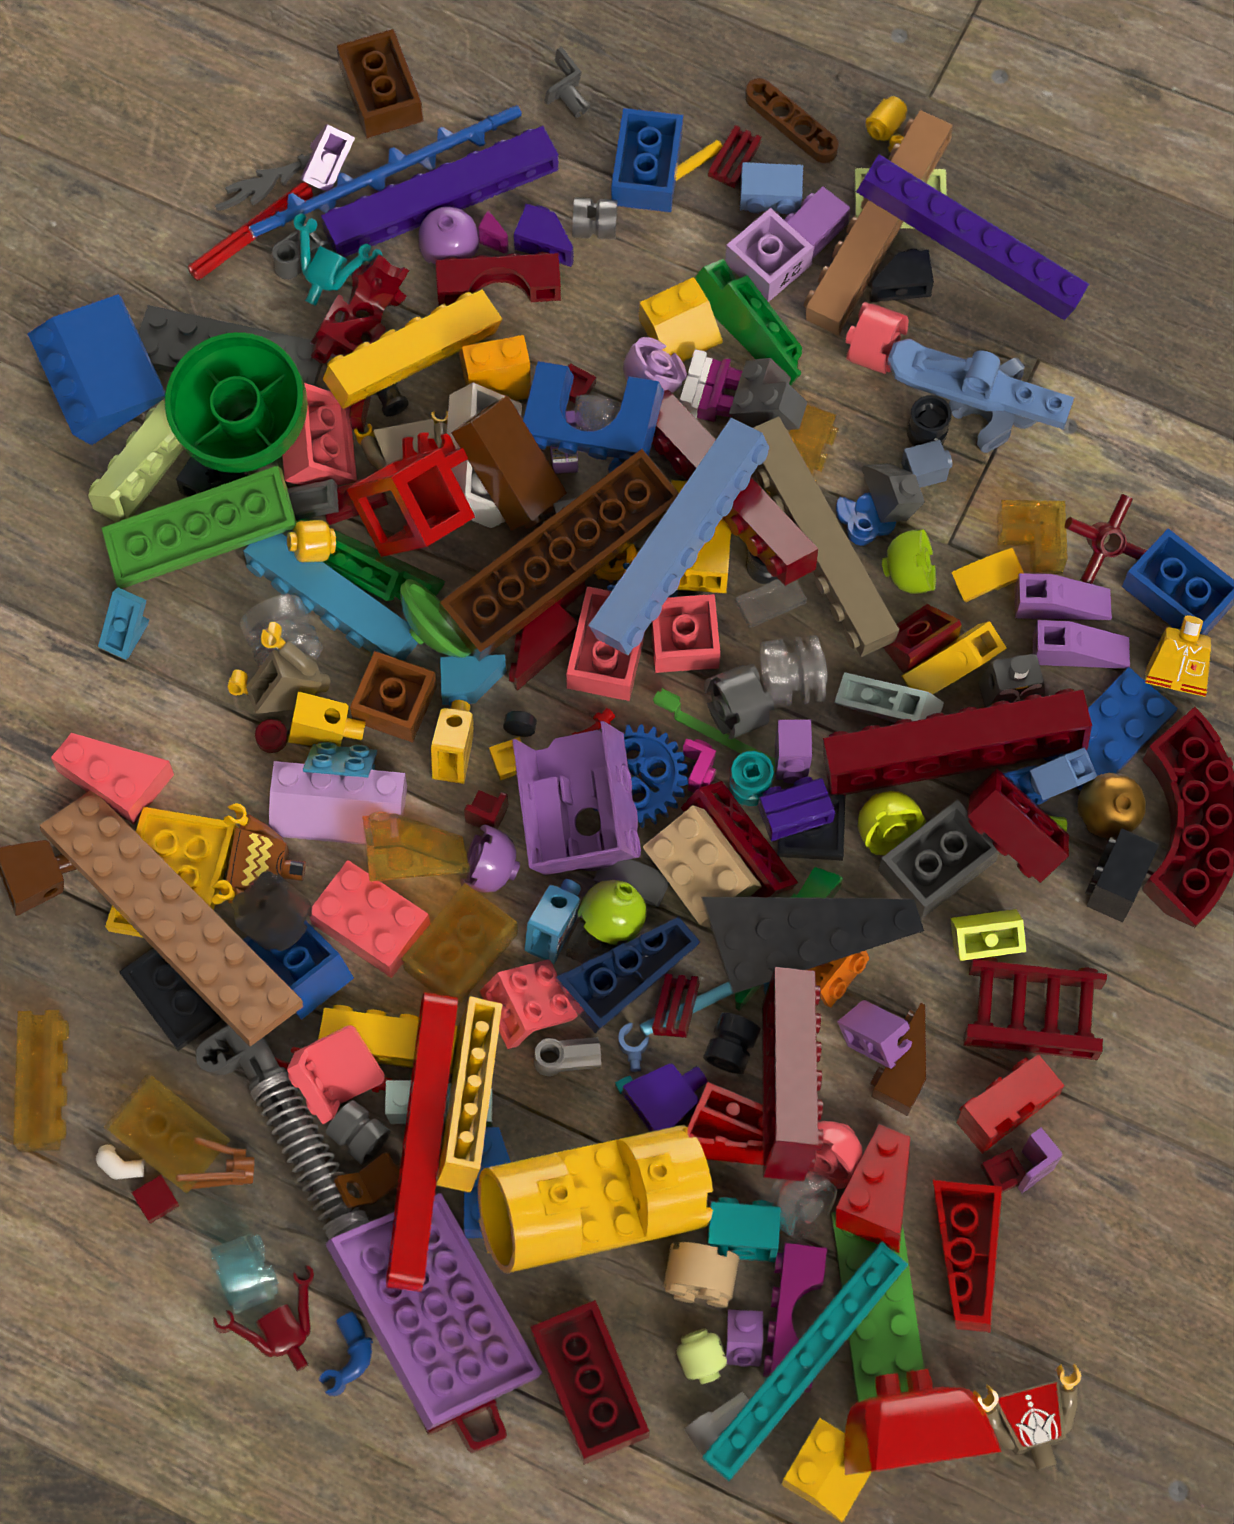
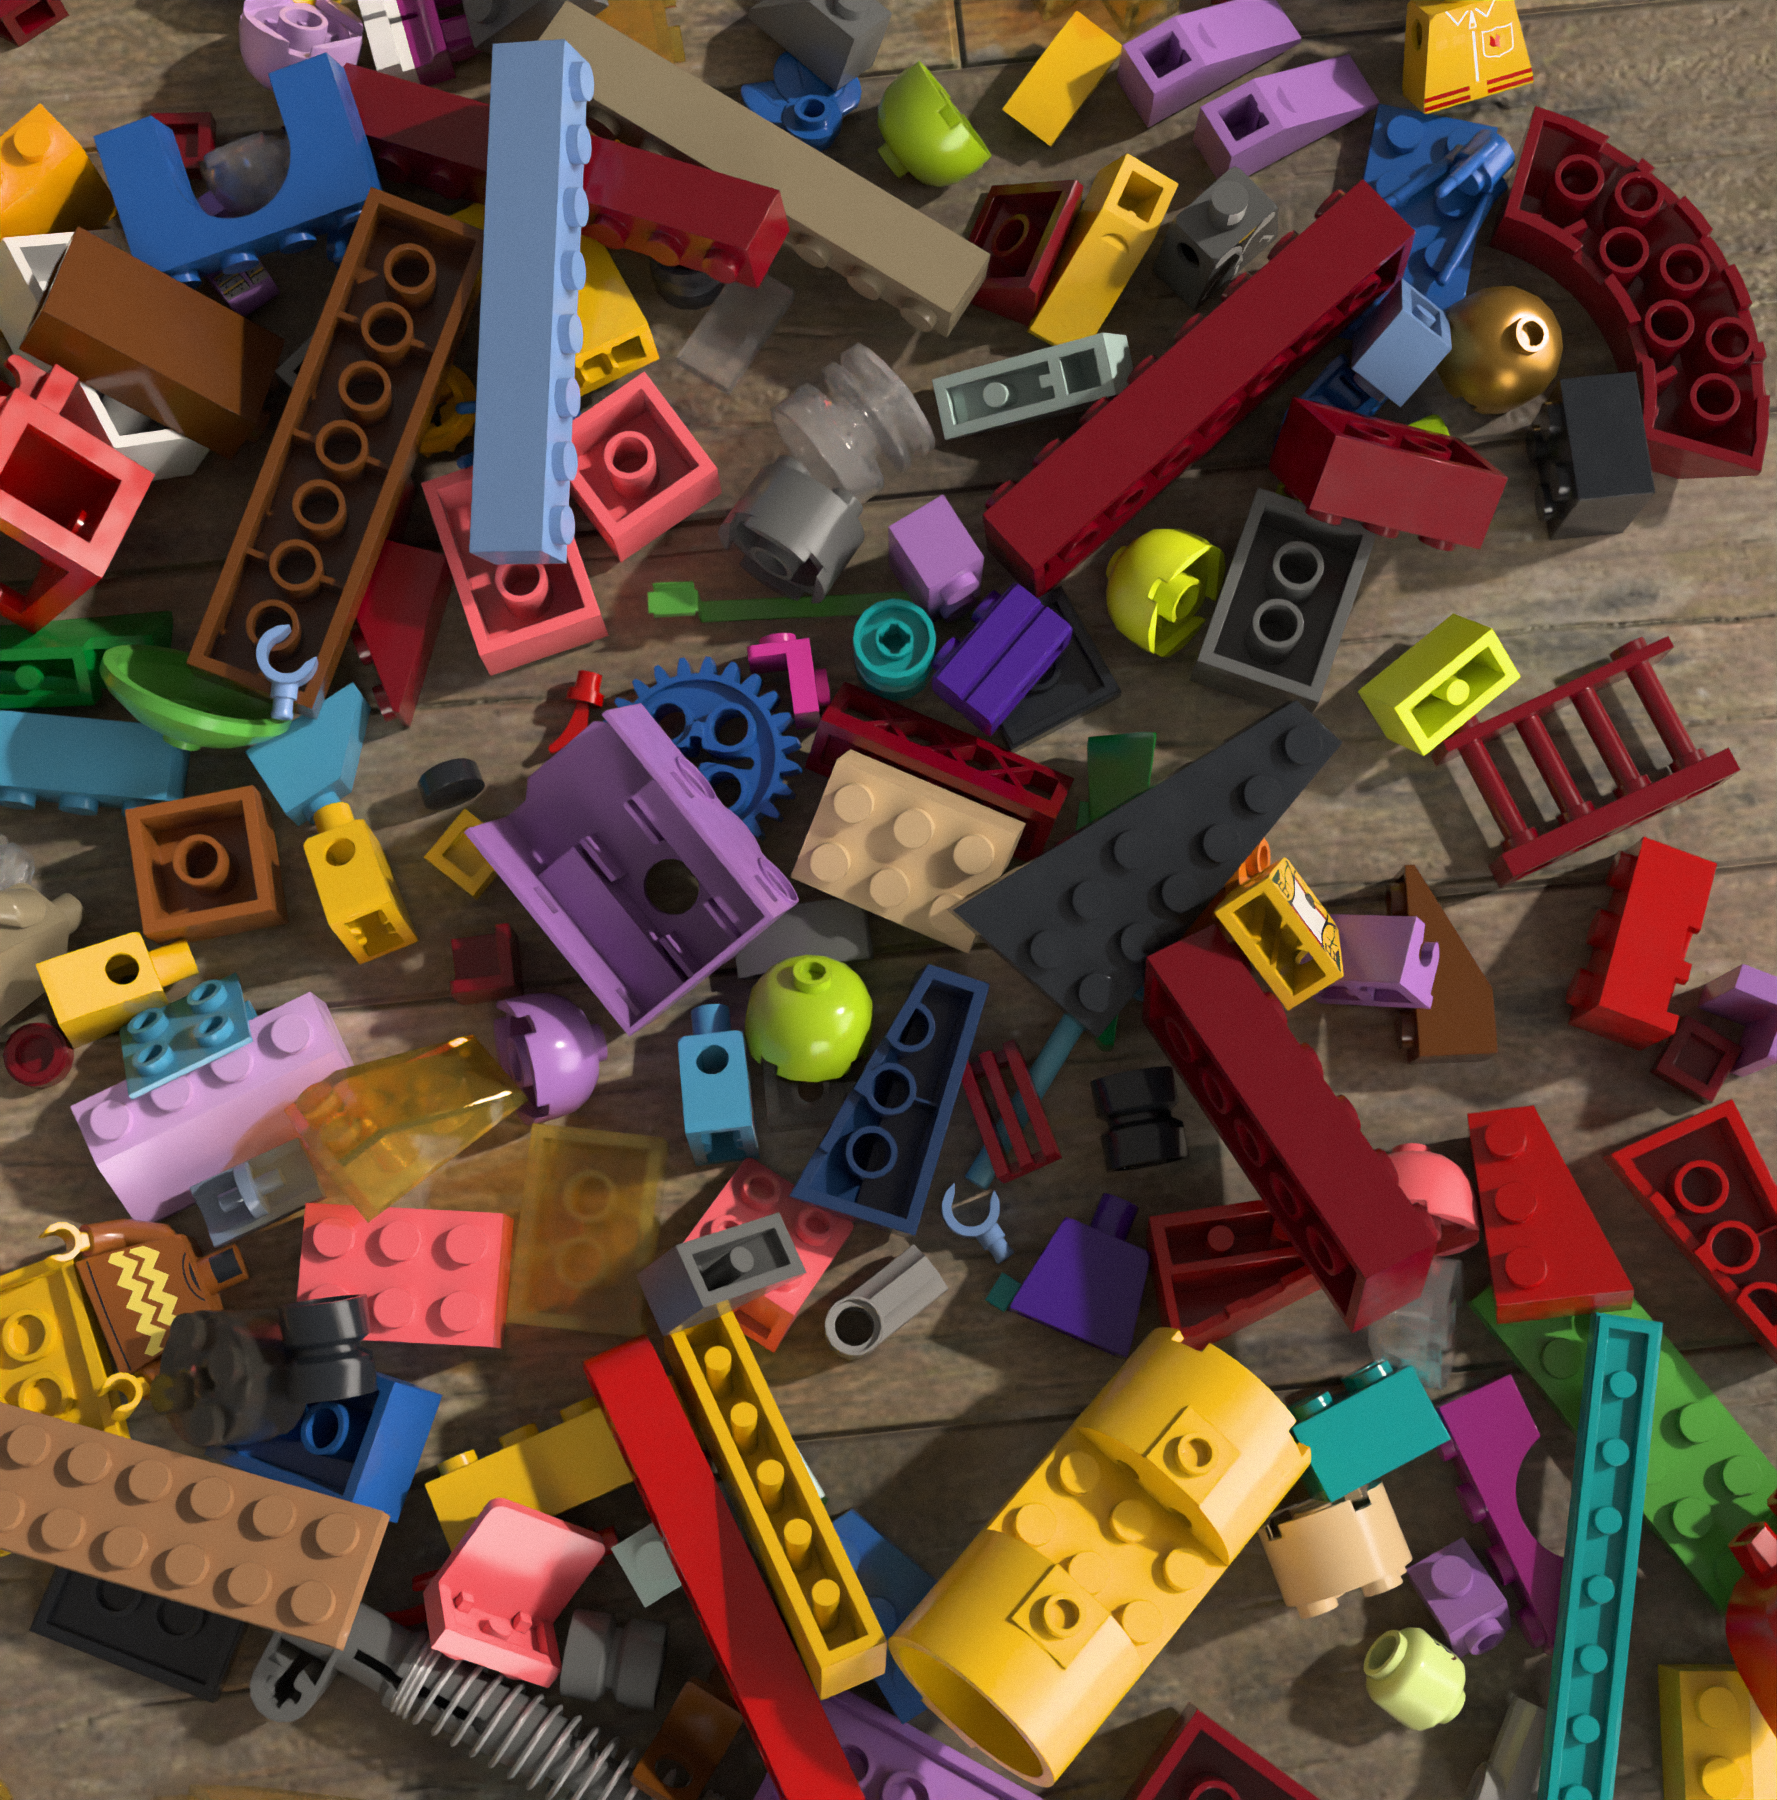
camera: 30 degrees left, 10 degrees up
(321, 920) = (327, 1348): none -> black wheel
(329, 845) = (258, 1192): none -> hips
(476, 635) = (283, 685): none -> medium blue piece
(505, 989) = (719, 1273): none -> dark grey slope
(843, 991) = (1276, 925): none -> yellow torso
(1149, 717) = (1472, 169): none -> blue plant

